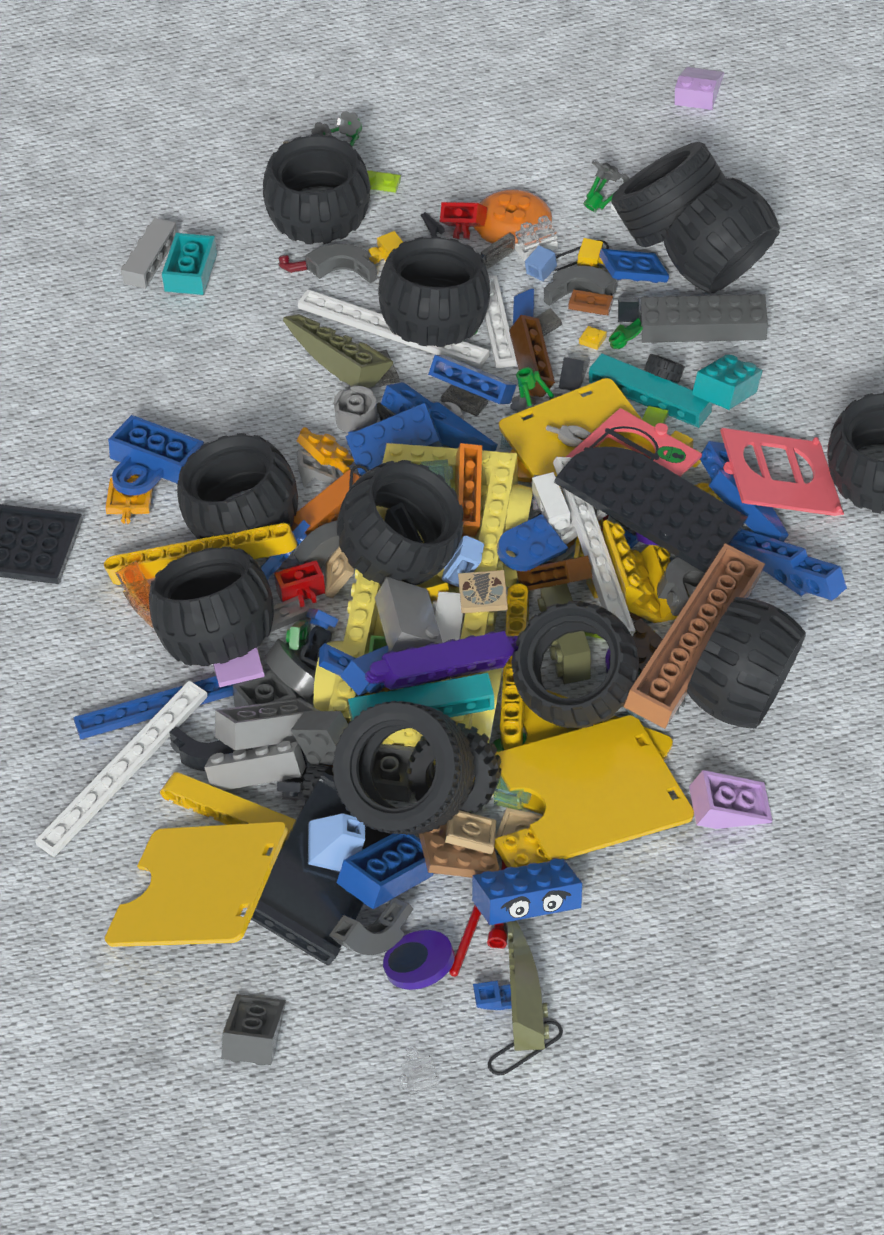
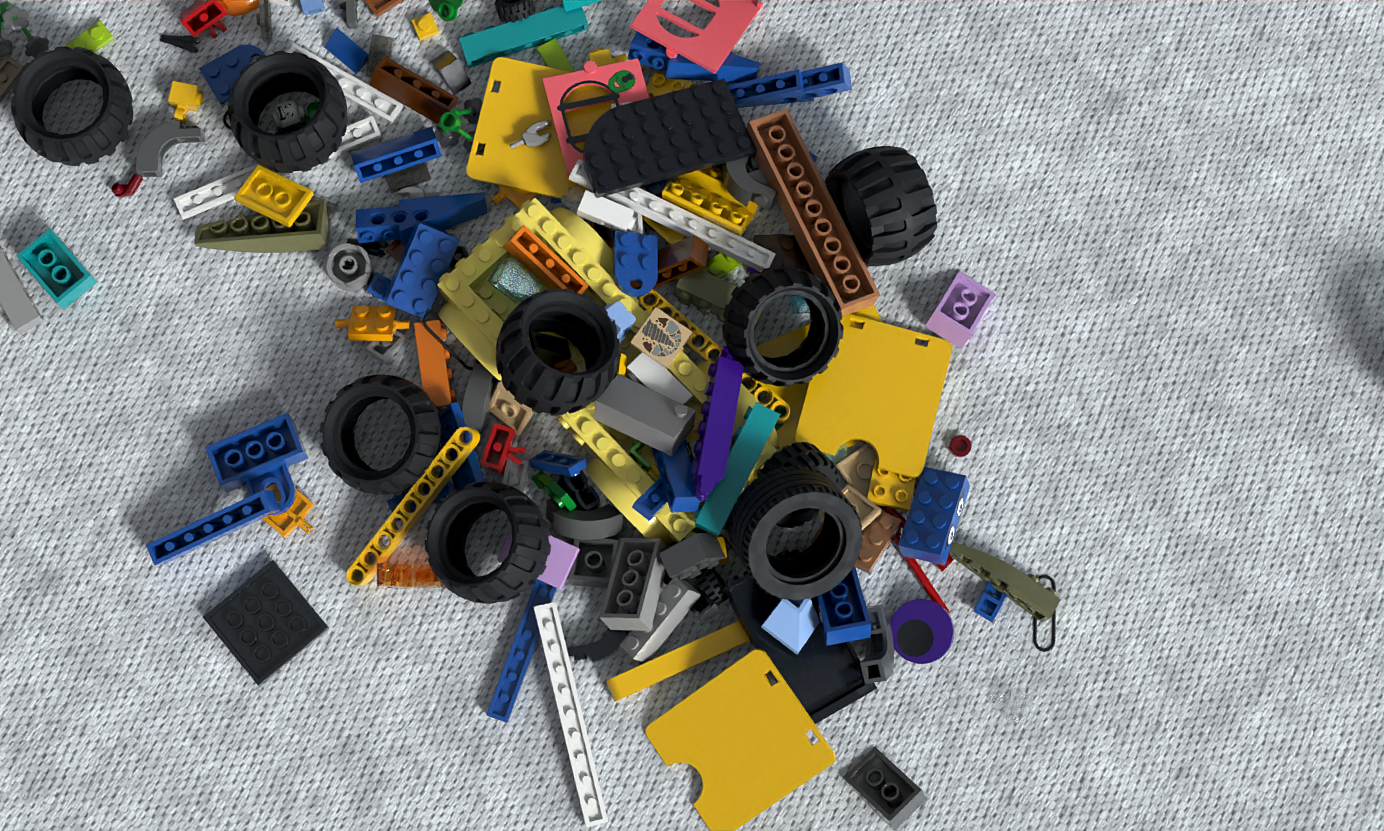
camera: 60 degrees left, 30 degrees up
(73, 456) = (213, 527): none -> blue brick
(364, 331) = (274, 196): none -> yellow plate
(612, 884) = (960, 446): none -> dark red tile

